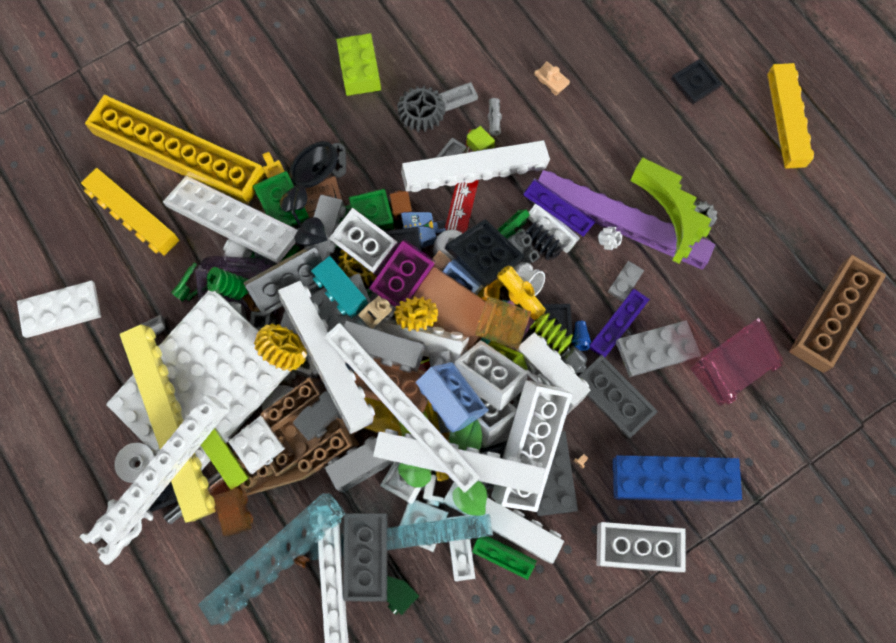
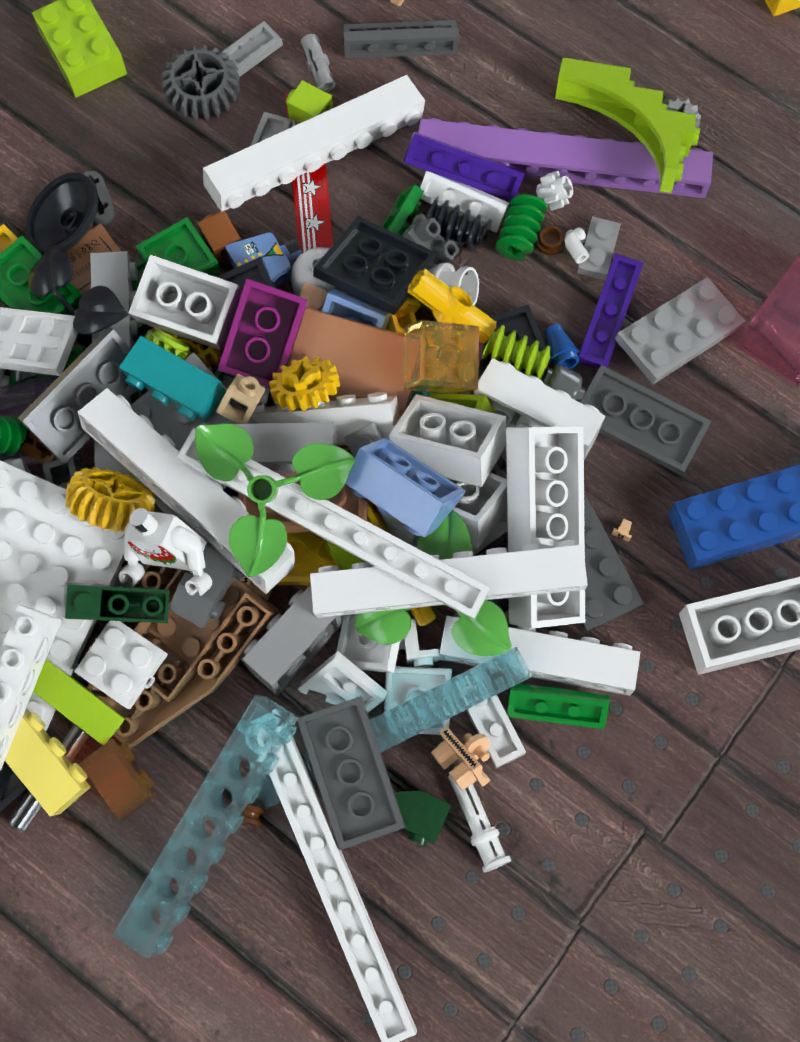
camera: 20 degrees left, 0 degrees up
(263, 409) = (115, 603): none -> dark green slope
(302, 385) = (163, 542): none -> white torso
(346, 263) = (169, 343): none -> lime gear
(351, 401) = (255, 540): none -> bright green plant
(381, 500) = (342, 682): none -> white wing
(431, 562) = (469, 769): none -> light nougat hips
(433, 620) = (484, 835): none -> white pin
(532, 112) = (401, 39): none -> dark grey fence
(581, 252) = (521, 226): none -> green piece
(597, 268) = (550, 240): none -> reddish brown plate
(610, 274) = (574, 245): none -> white arm

